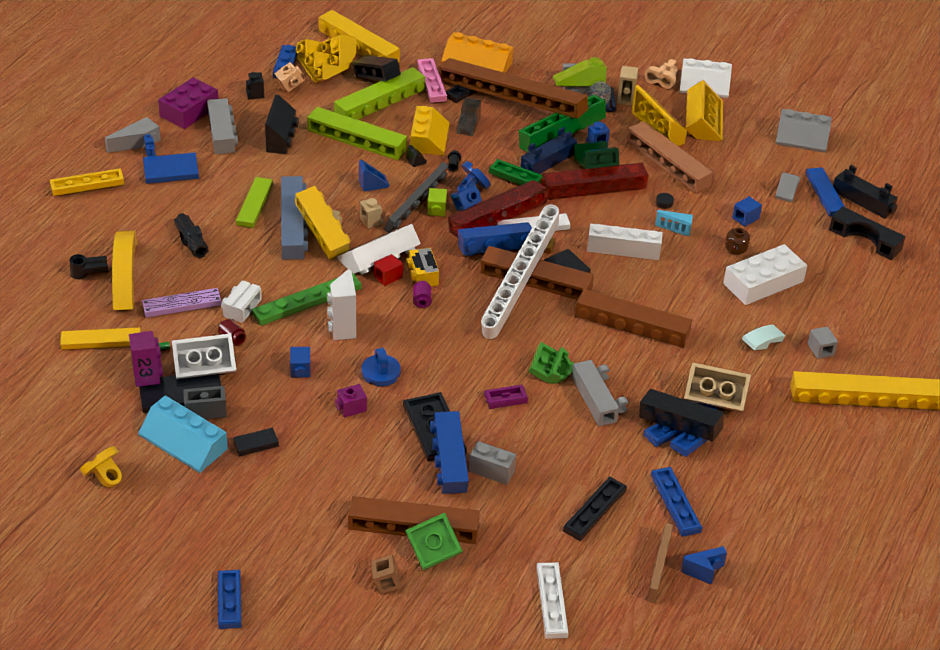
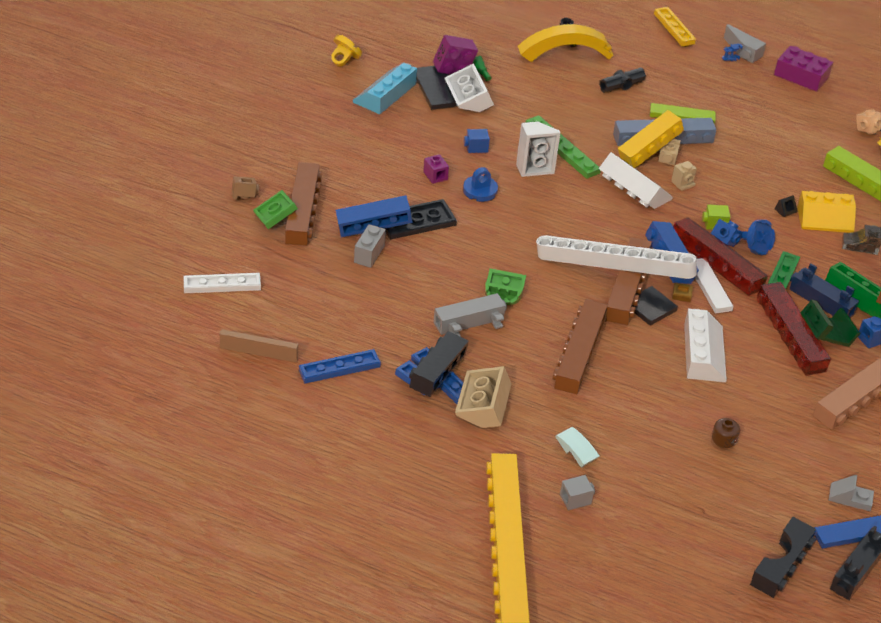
camera: 85 degrees right, 0 degrees up
(96, 338) = (489, 47): yellow tile -> none
(170, 168) = (712, 68): blue tile -> none
(181, 302) = (540, 82): lavender tile -> none
(206, 401) = (417, 91): dark grey brick -> none
(222, 126) = (779, 88): light grey brick -> none
(229, 599) = (225, 119): blue tile -> none
(230, 327) = (506, 105): dark red brick -> none
(241, 301) = (545, 107): white brick -> none
(255, 85) = (848, 100): black brick -> none
(256, 441) = (386, 125): black tile -> none
(280, 126) = (788, 115): black slope -> none
(357, 133) = (805, 165): lime brick -> none
(371, 178) = (738, 174): blue slope -> none
(388, 270) = (608, 187): red brick -> none
(414, 200) = (704, 198): dark grey plate -> none
(422, 294) = (580, 208): magenta brick -> none
(423, 266) = (617, 208): brick -> none
(454, 158) = (787, 230): black pin -> none
(508, 397) = (462, 270): magenta tile -> none
(594, 508) = (327, 313): black tile -> none
(664, 200) = (785, 385): black tile -> none
(682, 227) = (745, 390): medium azure slope -> none
(702, 564) = (256, 373): blue slope -> none
(747, 211) = (786, 449): blue brick -> none
(765, 274) = (677, 453): white brick -> none

